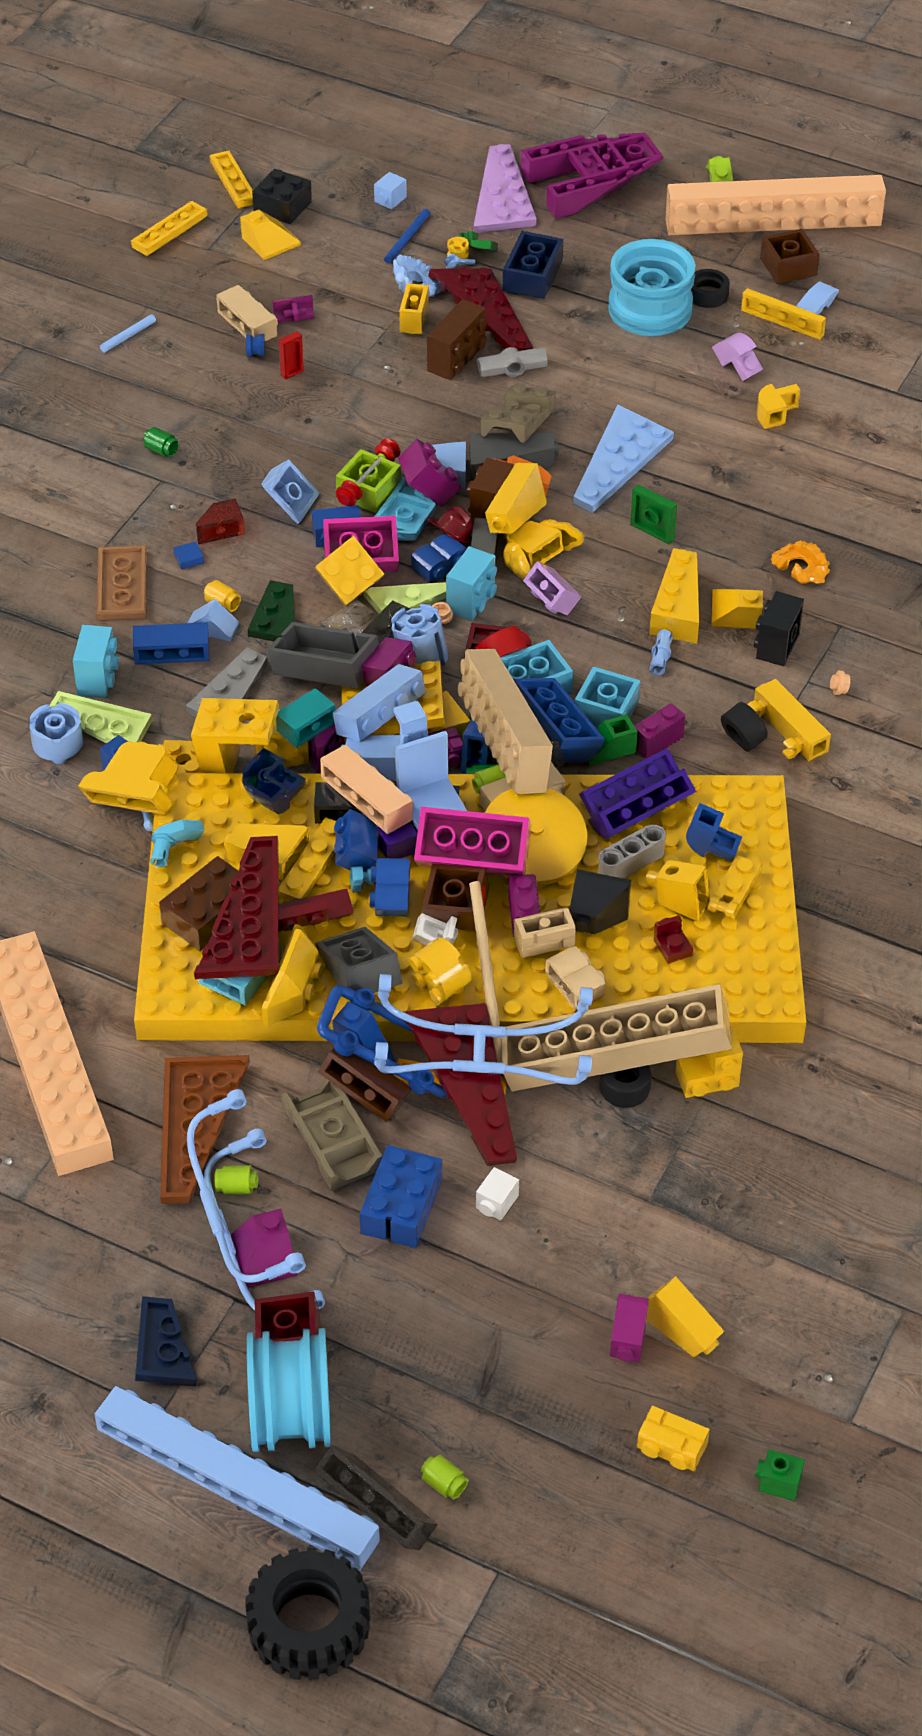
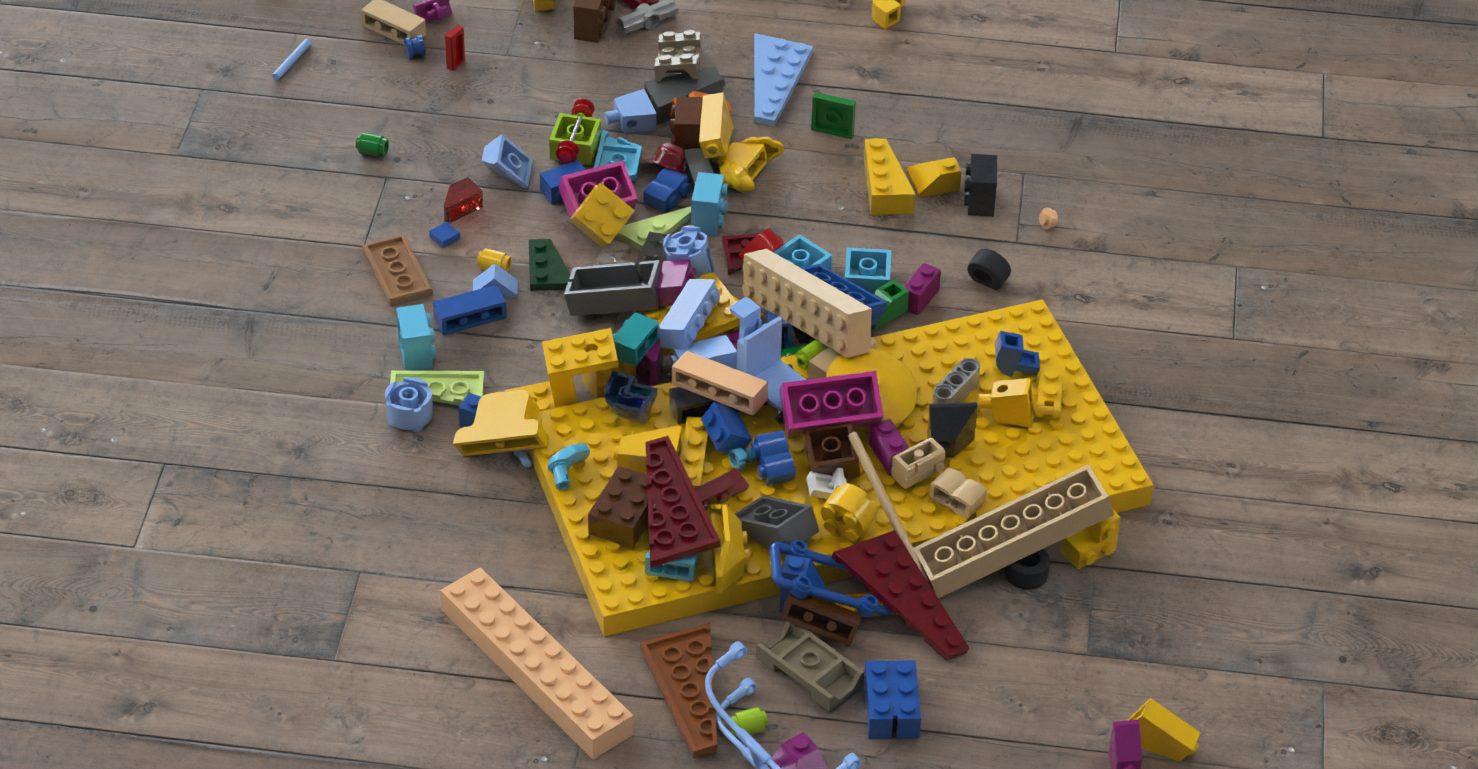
camera: 20 degrees left, 5 degrees down
(233, 681) = (539, 327): light grey wing -> none
(399, 842) = (761, 422): dark purple brick -> none
(427, 473) = (627, 120): magenta brick -> none
(480, 1032) = (846, 579): light blue bar -> none
(497, 1194) = (967, 678): white brick -> none
(552, 589) = (773, 192): lavender brick -> none
(636, 794) = (938, 338): dark purple brick -> none
(661, 652) = (889, 226): light blue pin -> none
(672, 940) = (1019, 446): dark red bracket -> none
(791, 720) = (1025, 256): yellow brick -> none
(811, 554) = (973, 120): light orange piece -> none

